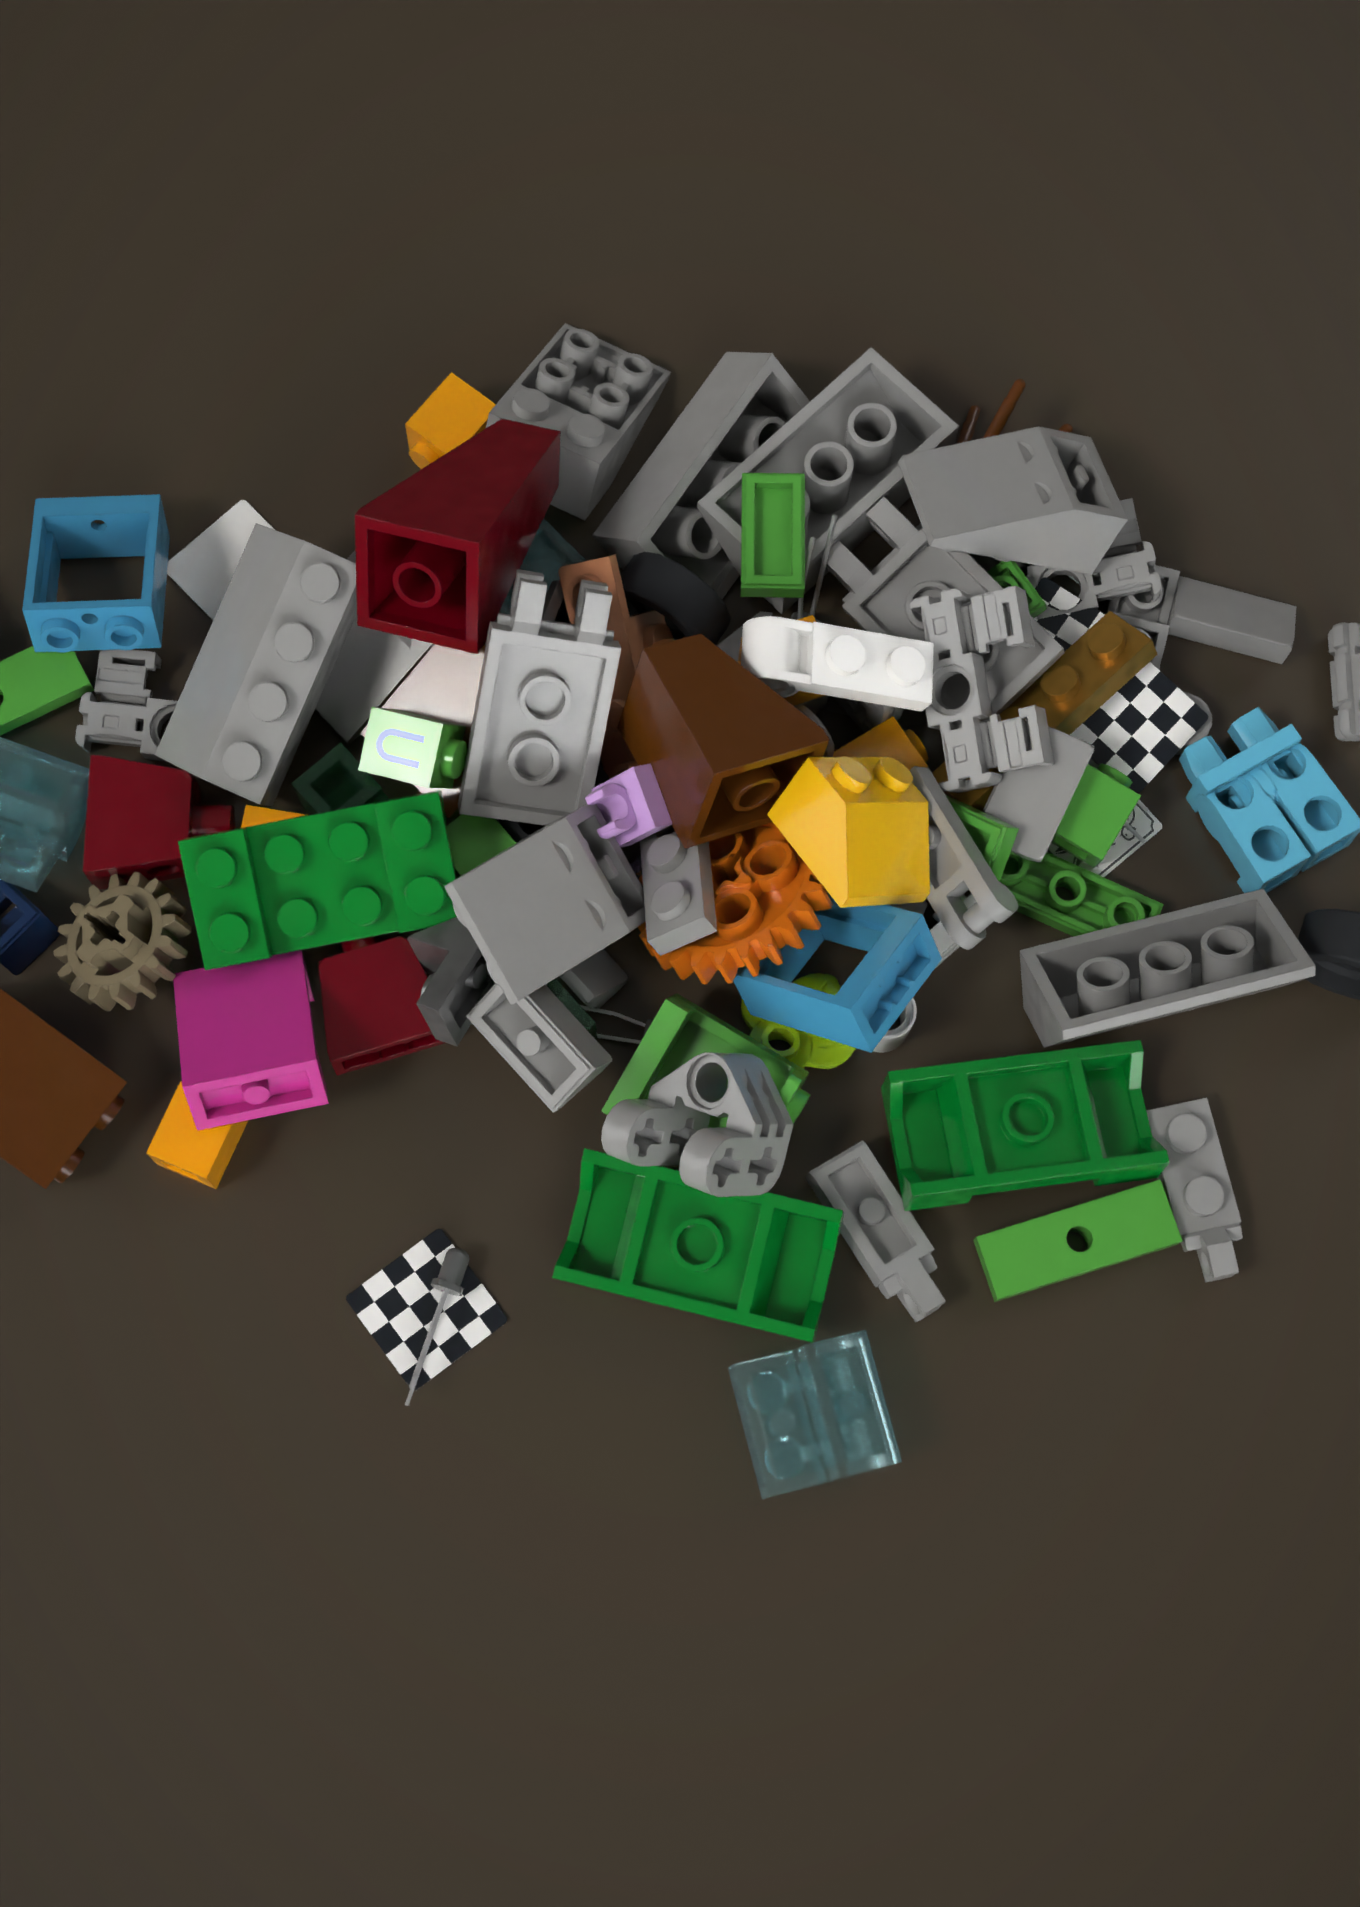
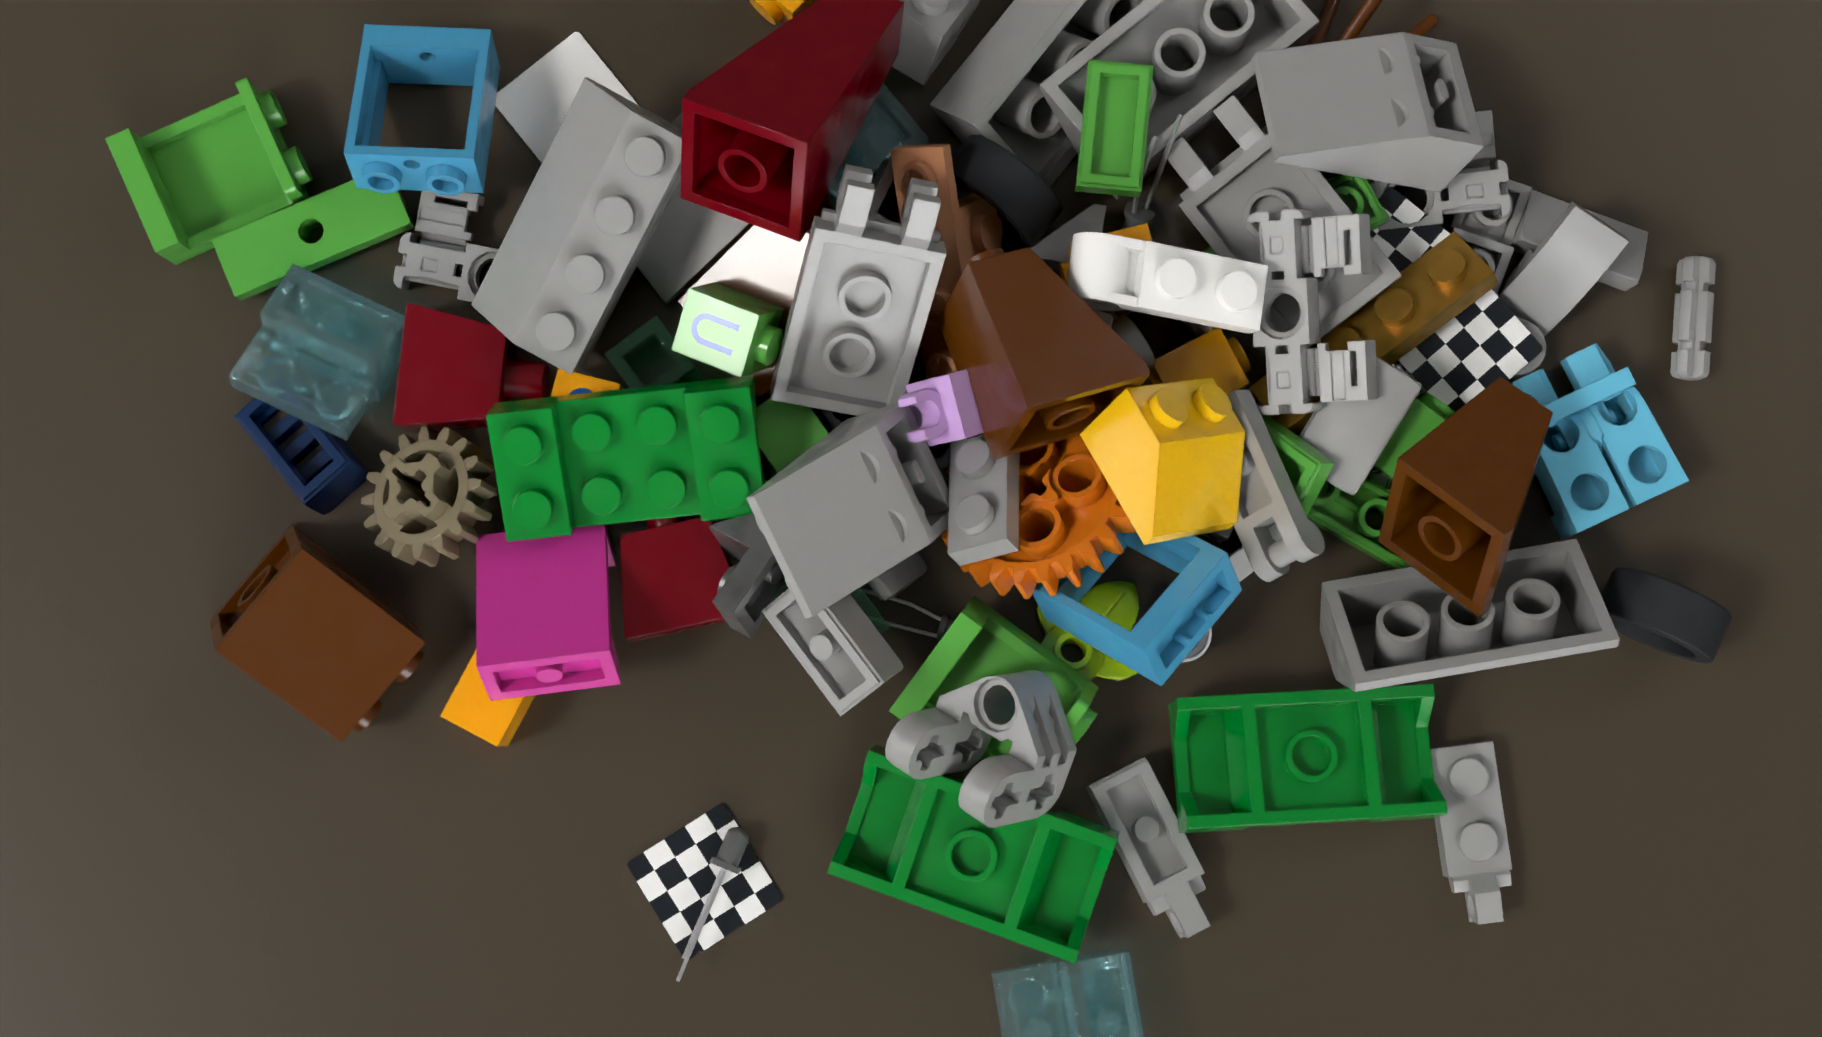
camera: 10 degrees right, 10 degrees up
(1113, 1232) = (1385, 869): bright green tile -> none
(1149, 846) = (1465, 491): none -> reddish brown slope
(1217, 638) = (1561, 268): none -> light grey slope

